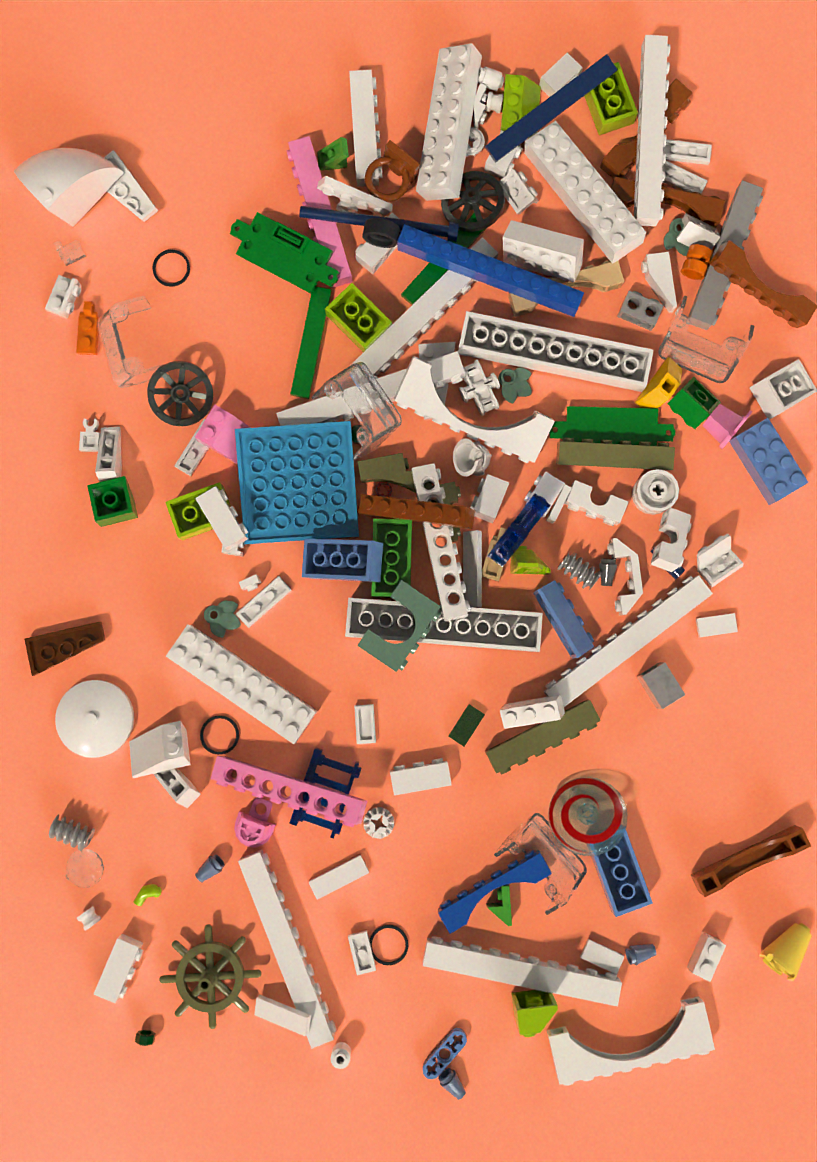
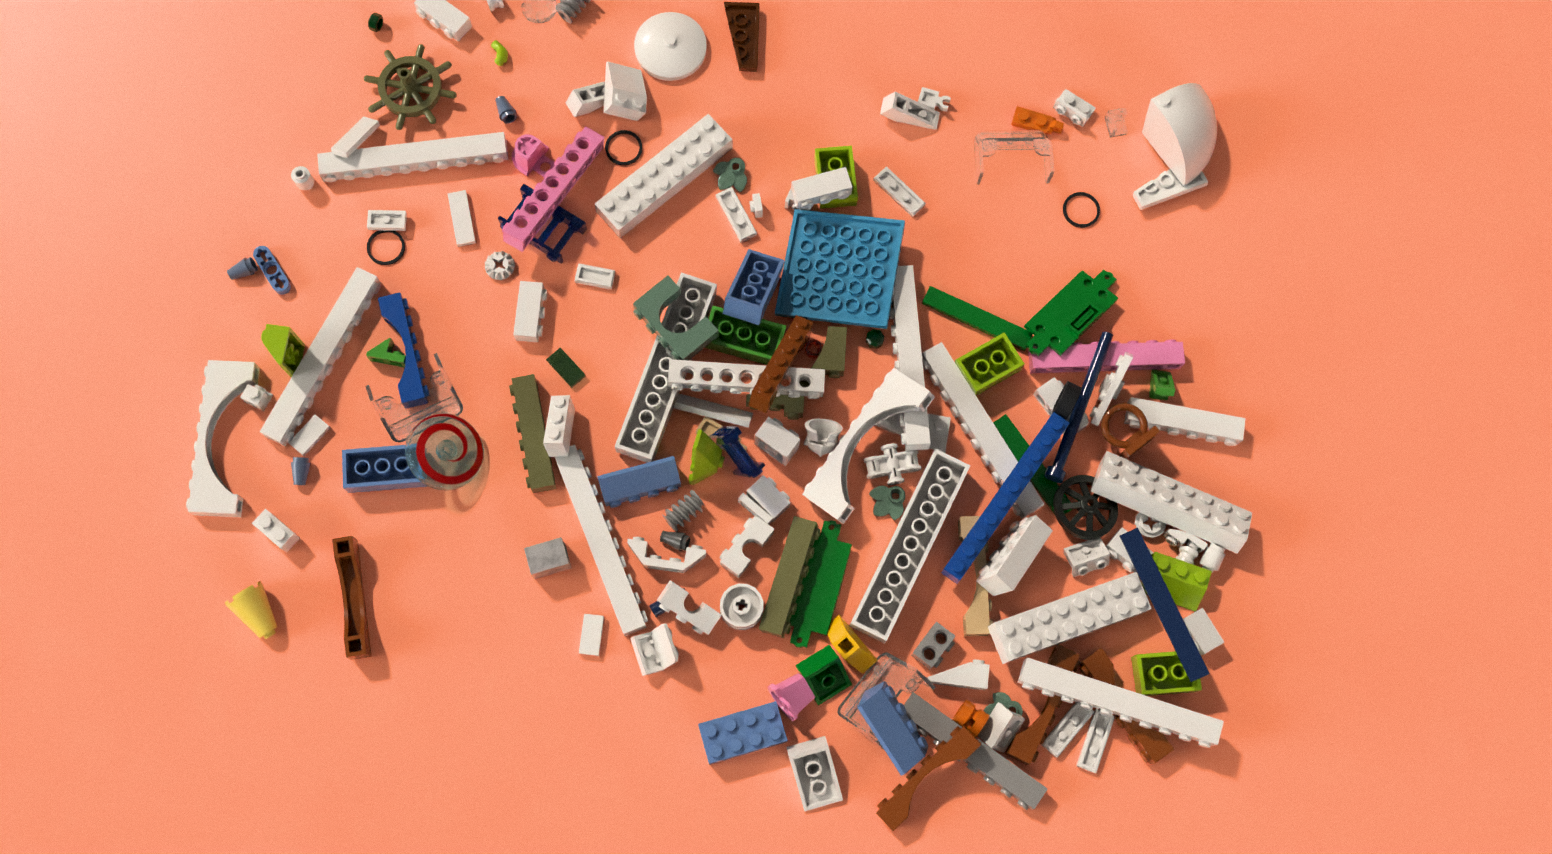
camera: 100 degrees right, 10 degrees down
(112, 501) = (865, 102): green slope -> none
(179, 399) = (951, 182): pearl dark grey wheel -> none
(219, 432) = (908, 207): bright pink slope -> none
(367, 402) = (897, 343): clear windscreen -> none
(580, 1022) = (256, 396): none -> white brick
(731, 325) = (892, 727): none -> medium blue slope

